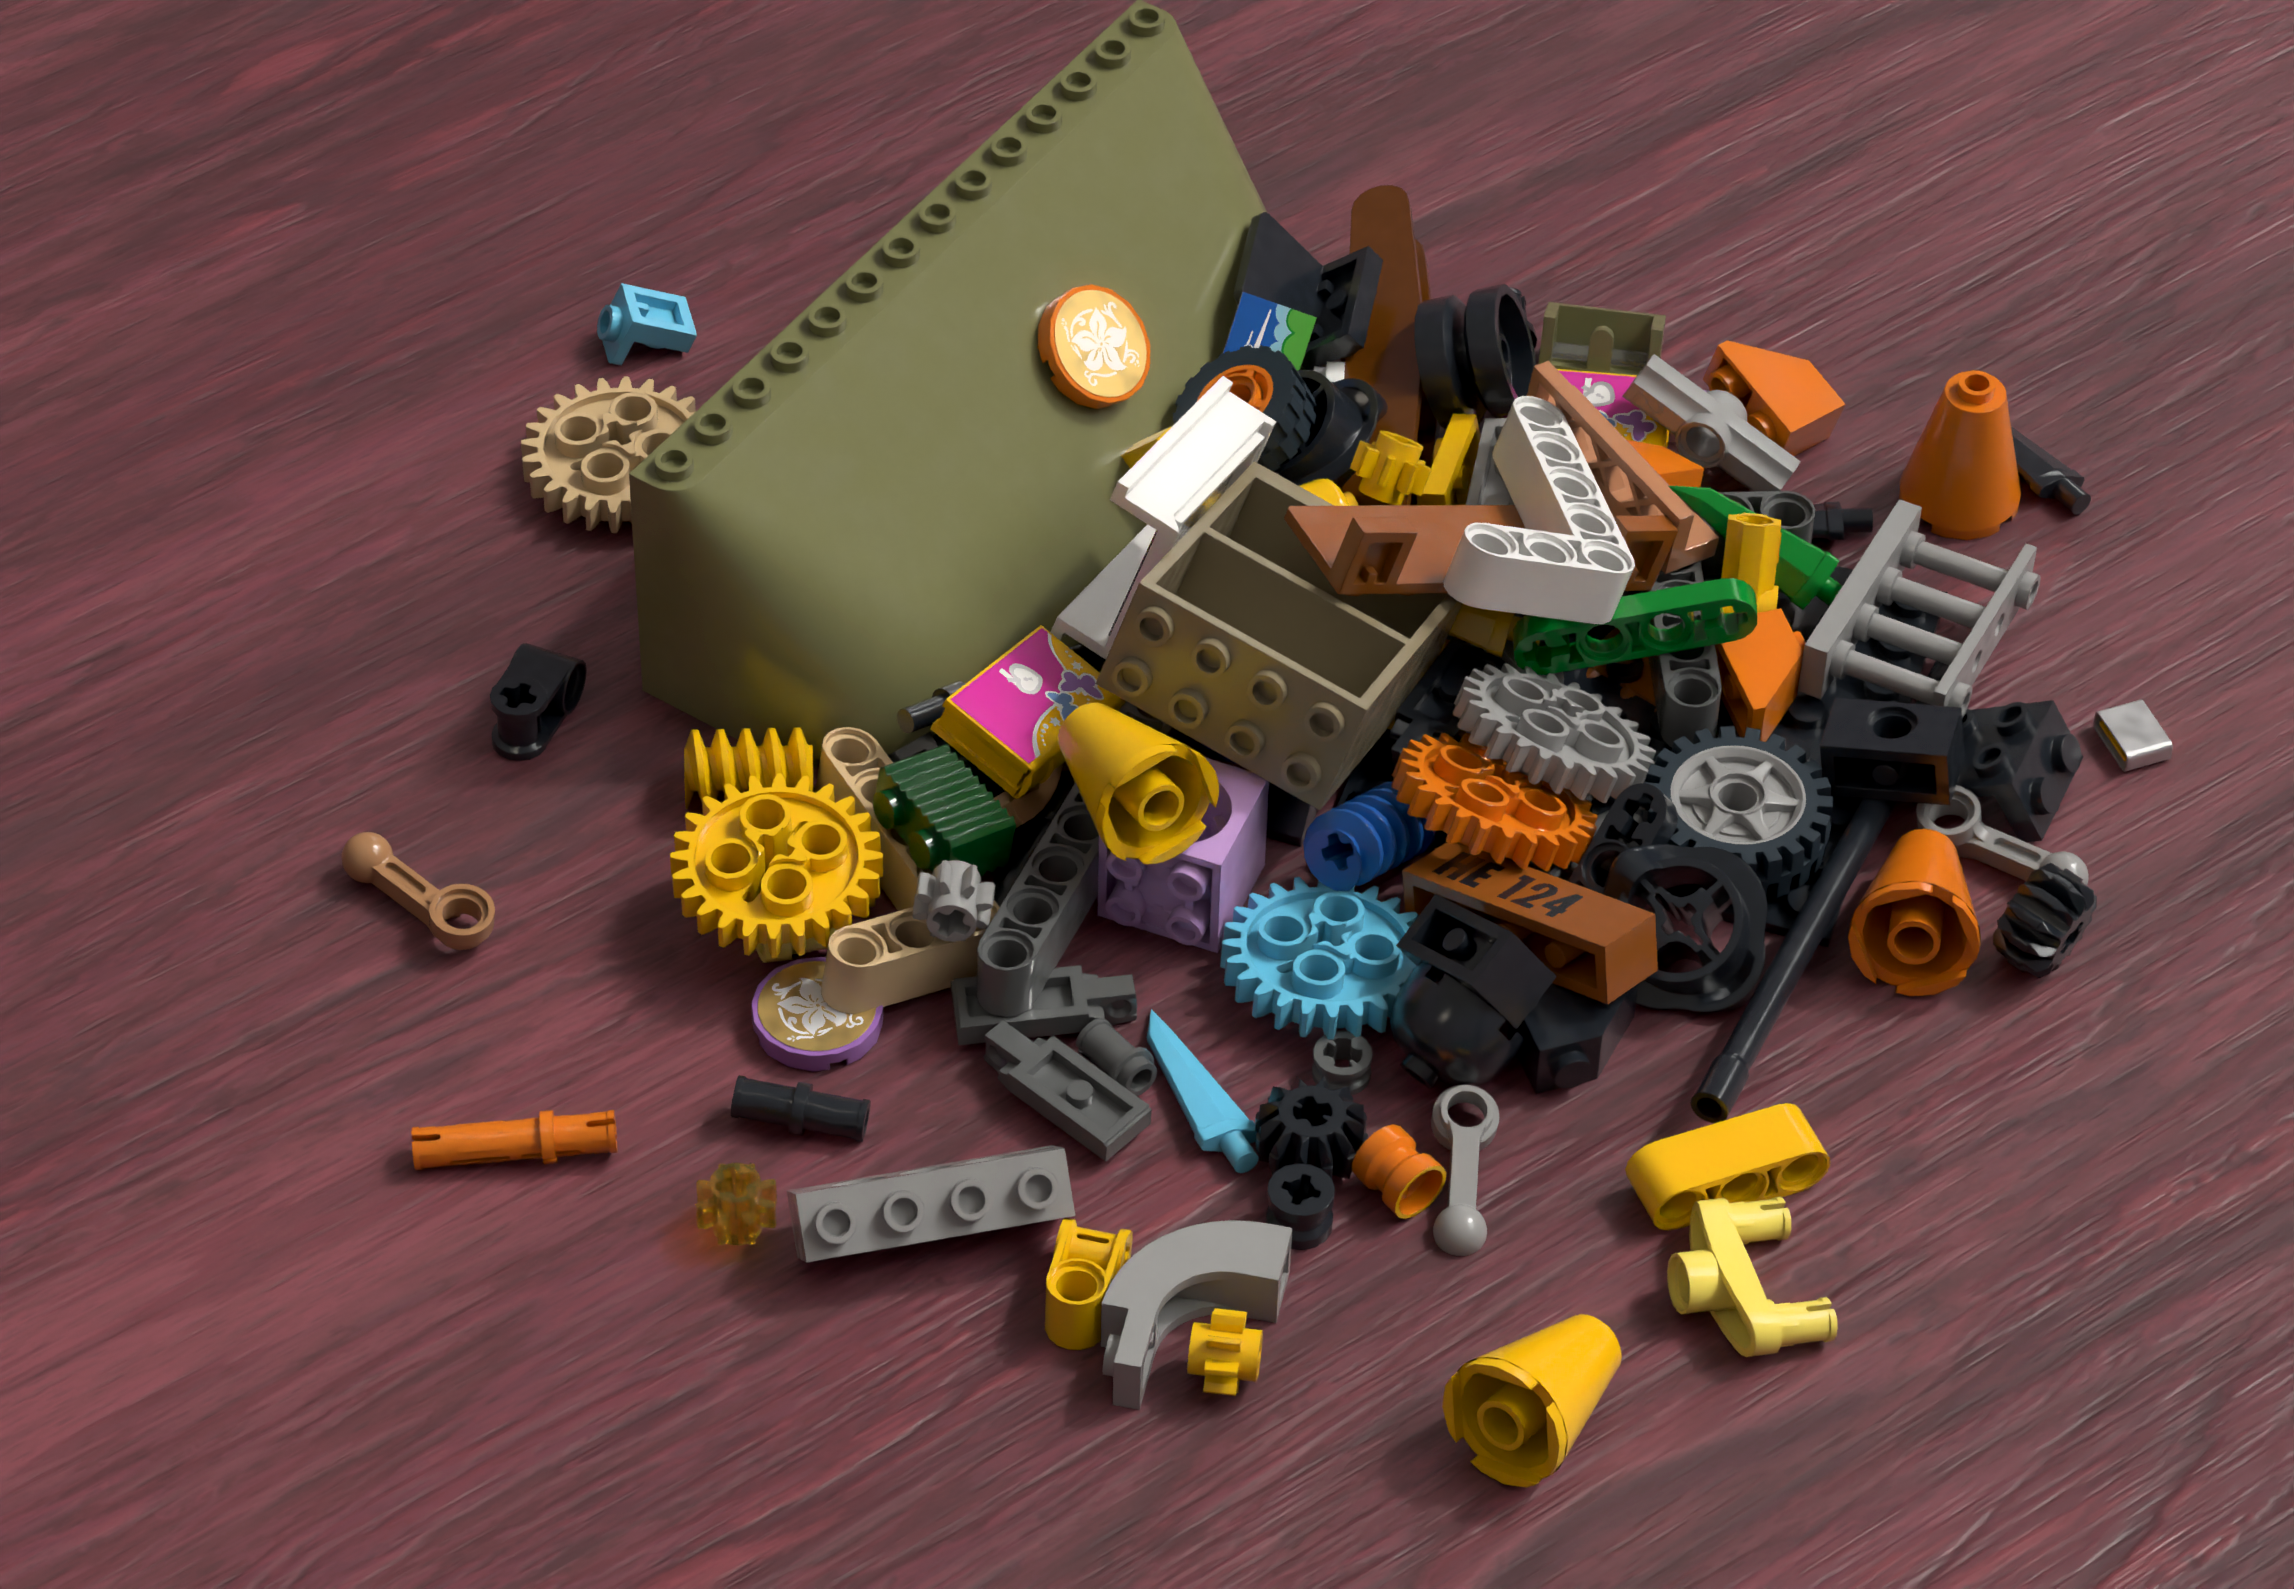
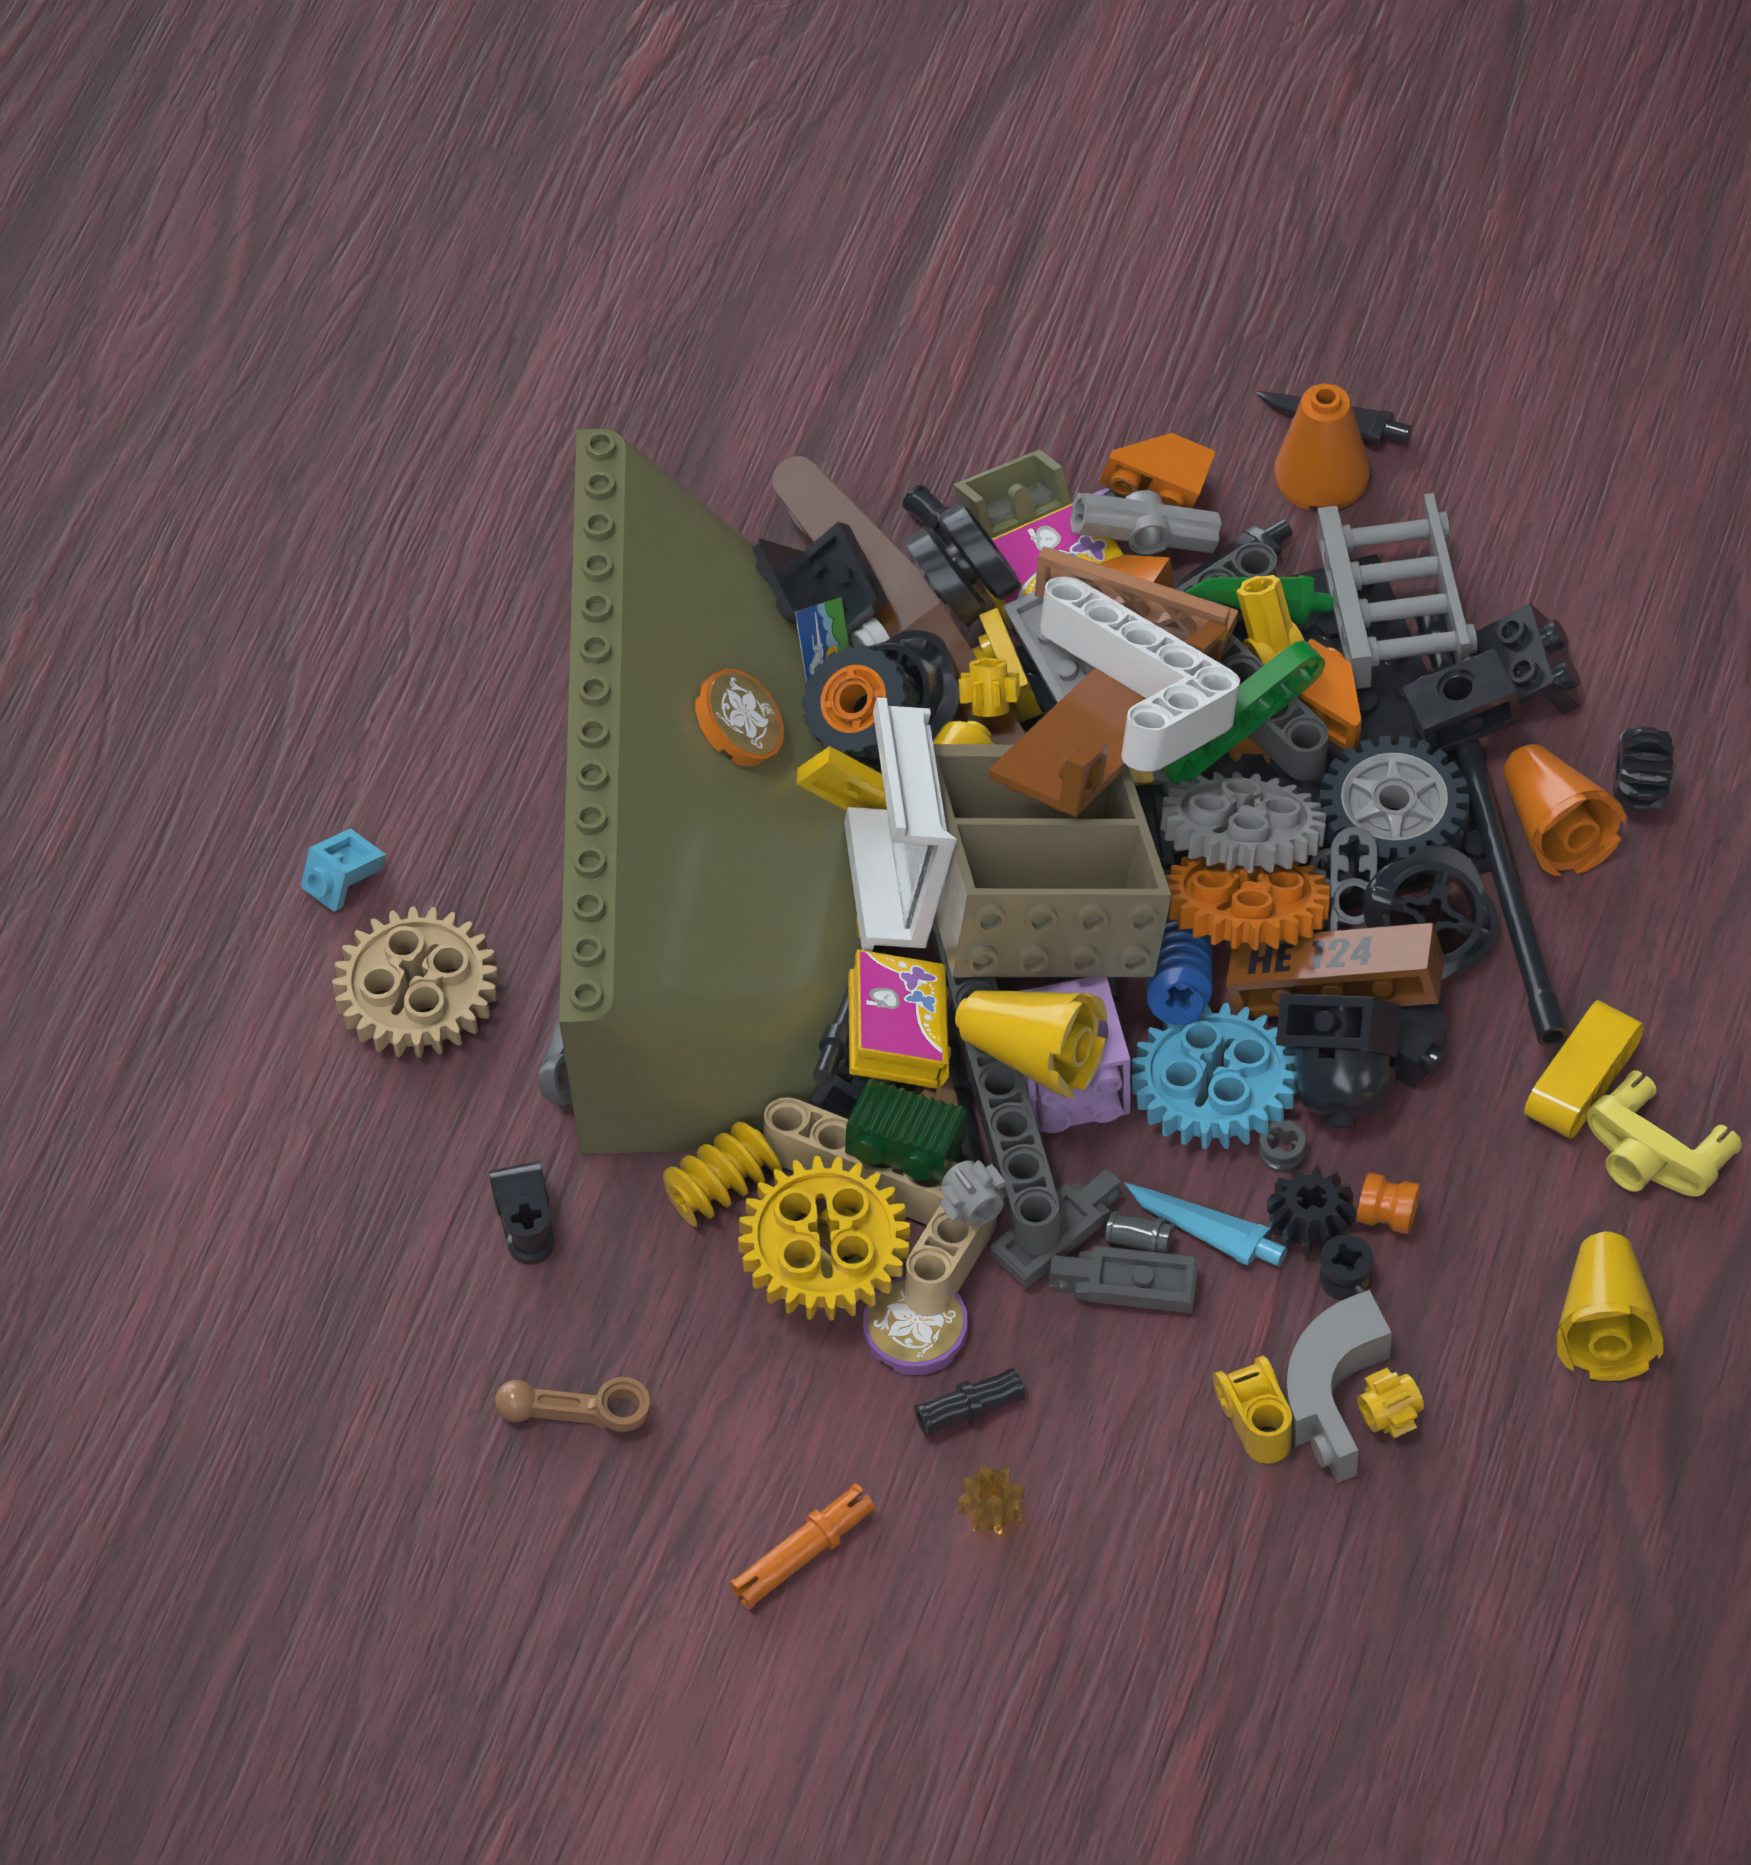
camera: 30 degrees left, 10 degrees up
(930, 1203) = (1122, 1419): light grey brick -> none
(1460, 1227) = (1448, 1216): light grey piece -> none
(1989, 845) = (1570, 729): light grey piece -> none
(2133, 735) = (1575, 592): flat silver piece -> none

